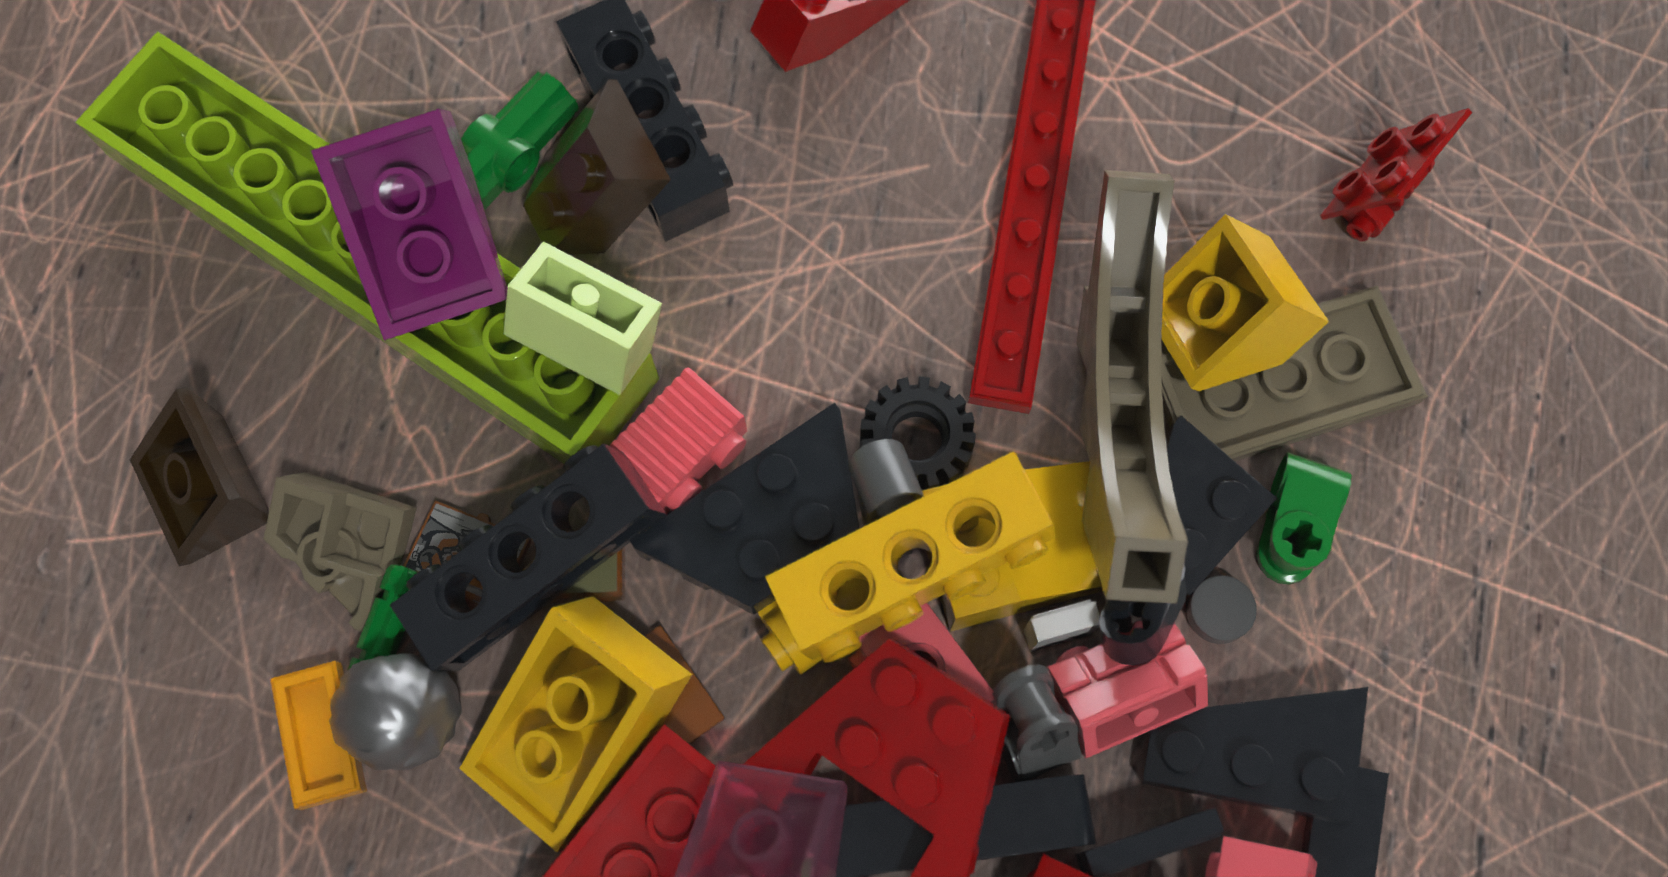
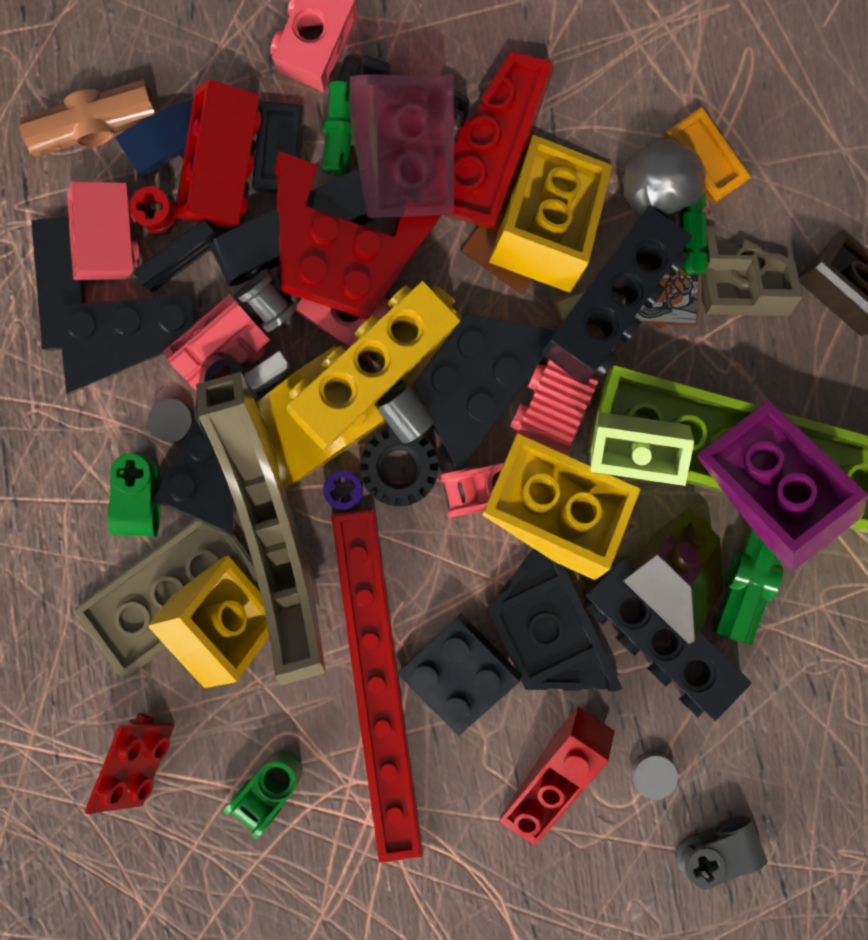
camera: 160 degrees right, 15 degrees up
(720, 301) = (561, 507): none -> yellow slope
(788, 177) = (549, 630): none -> black wing
(817, 372) = (476, 488): none -> coral piece
(923, 153) = (460, 674): none -> black plate
(1003, 414) = (330, 486): none -> dark purple bush
(1228, 89) = (262, 797): none -> green piece

